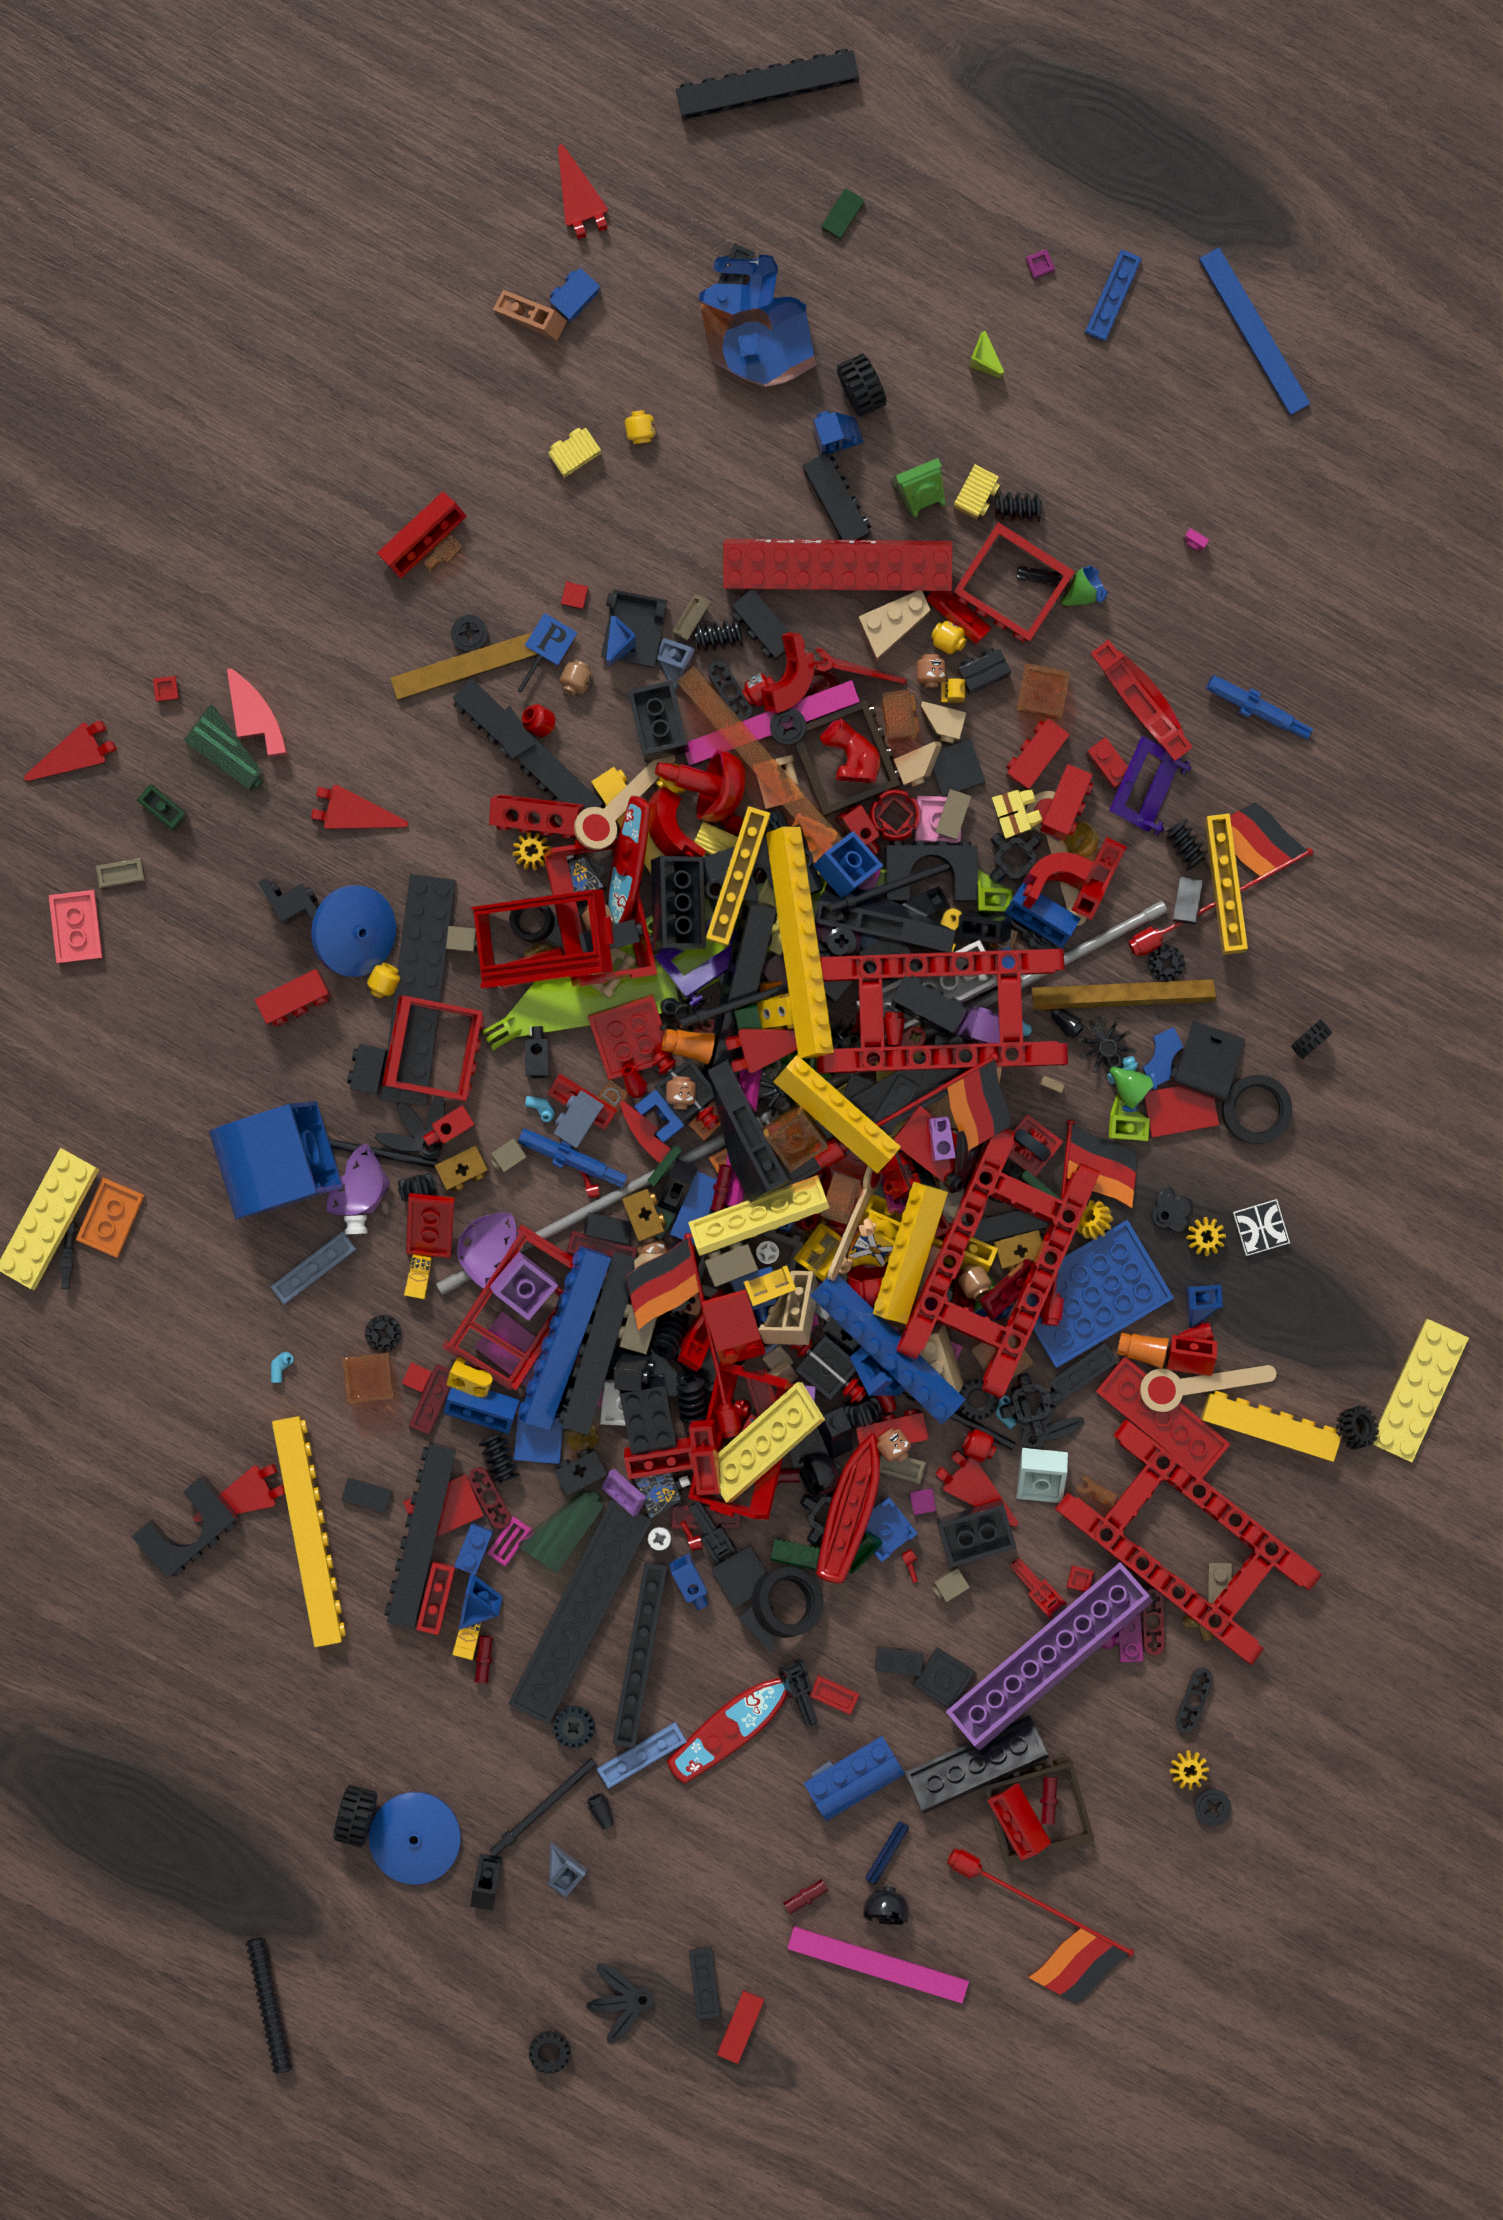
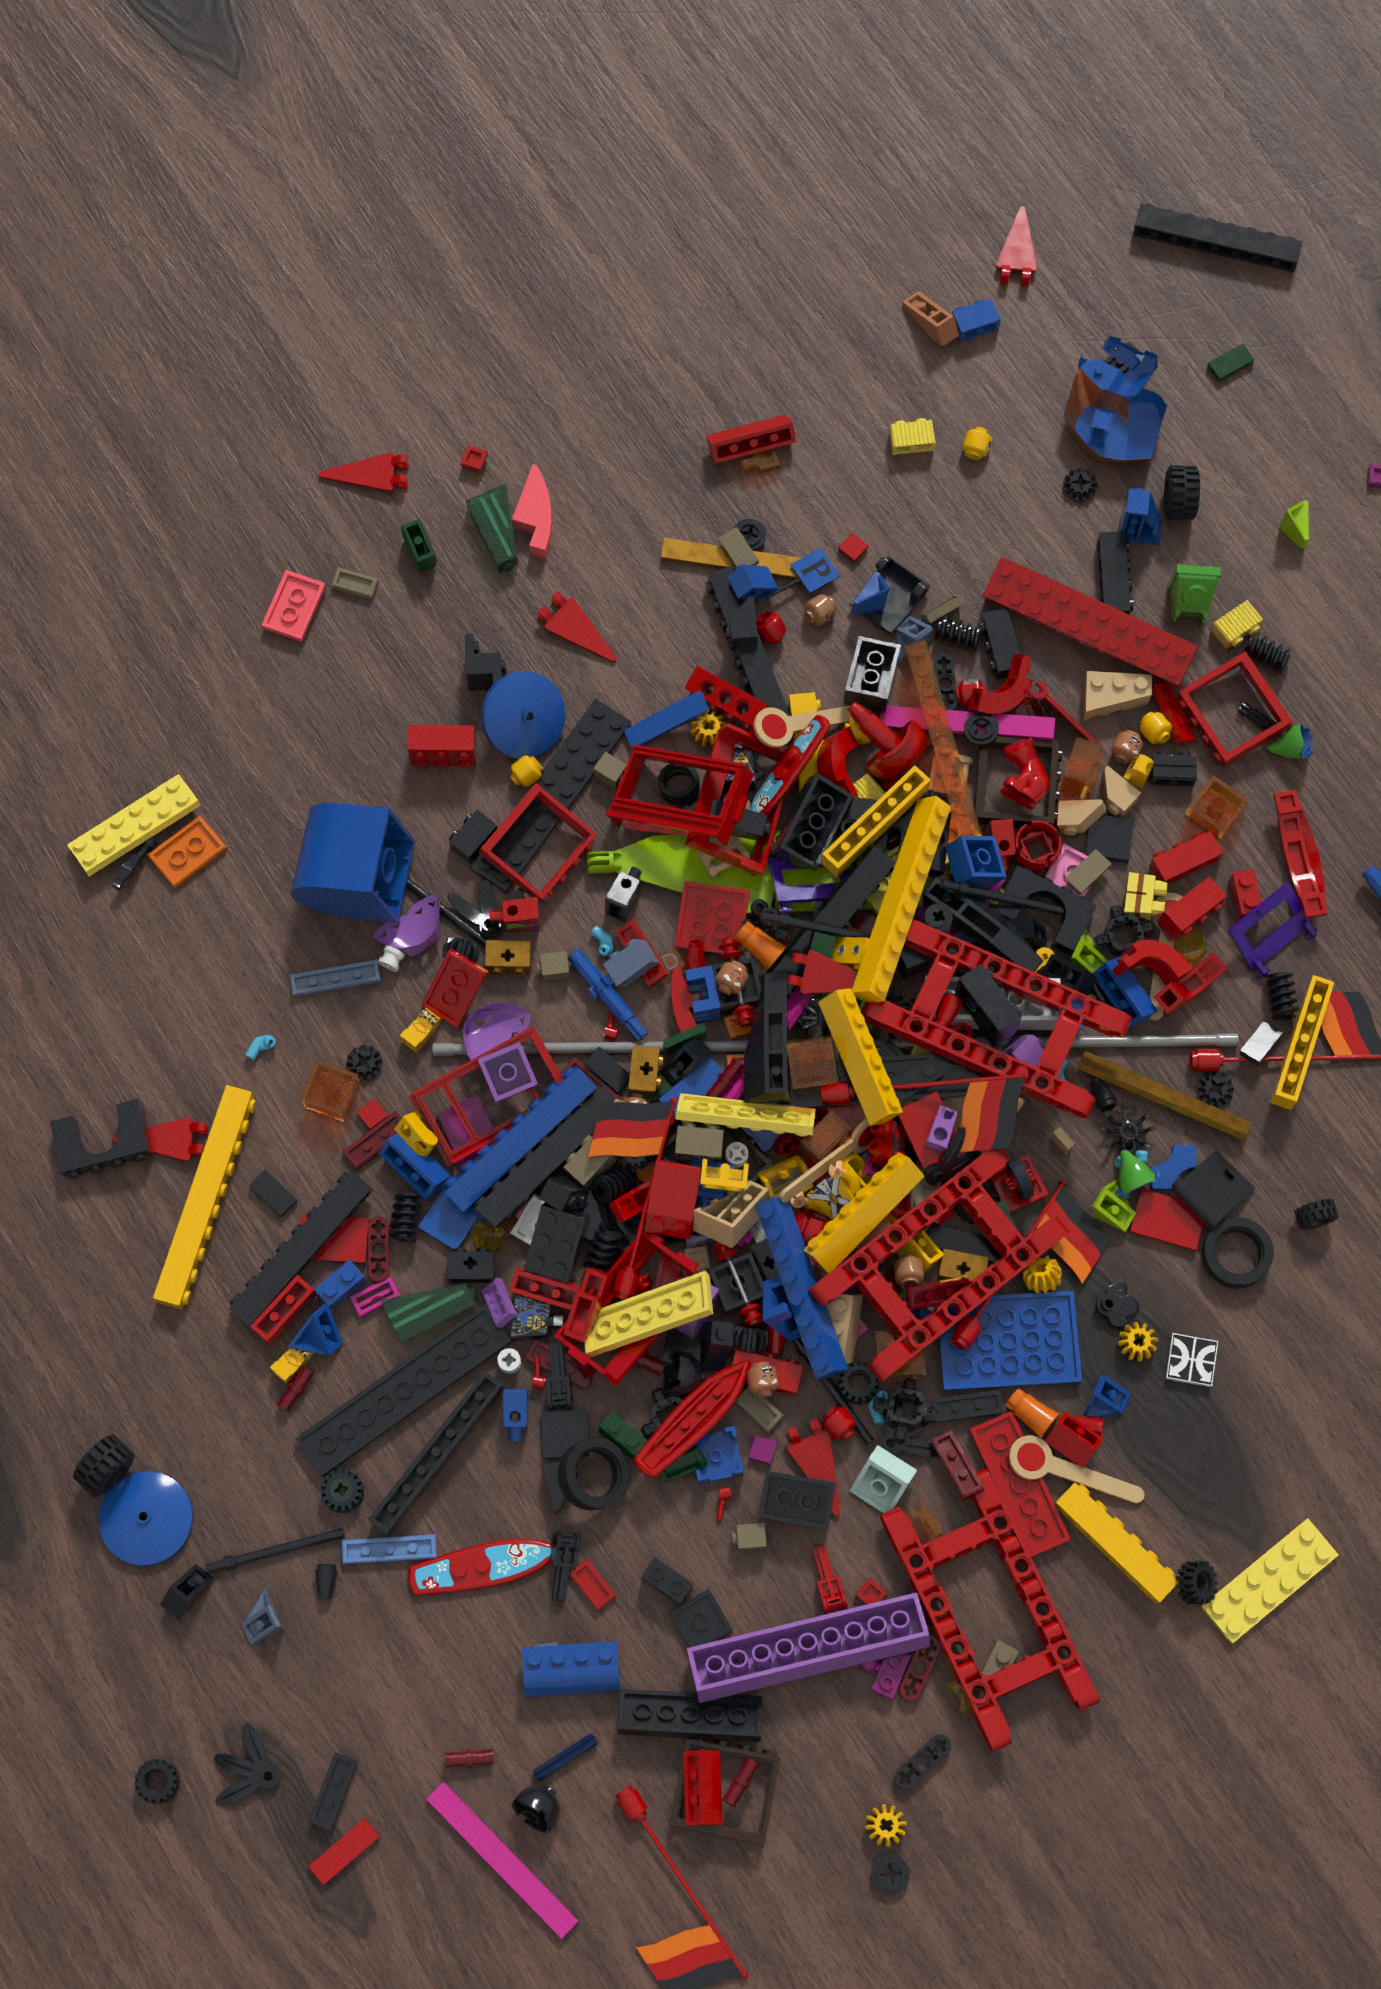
camera: 25 degrees right, 15 degrees down
(468, 656) = (738, 548): none -> dark tan tile
(489, 864) = (667, 719): none -> blue tile
(499, 684) = (752, 581): none -> blue brick
(756, 429) = (1073, 489): none -> black gear
(1100, 1430) = (957, 1465): none -> dark red tile

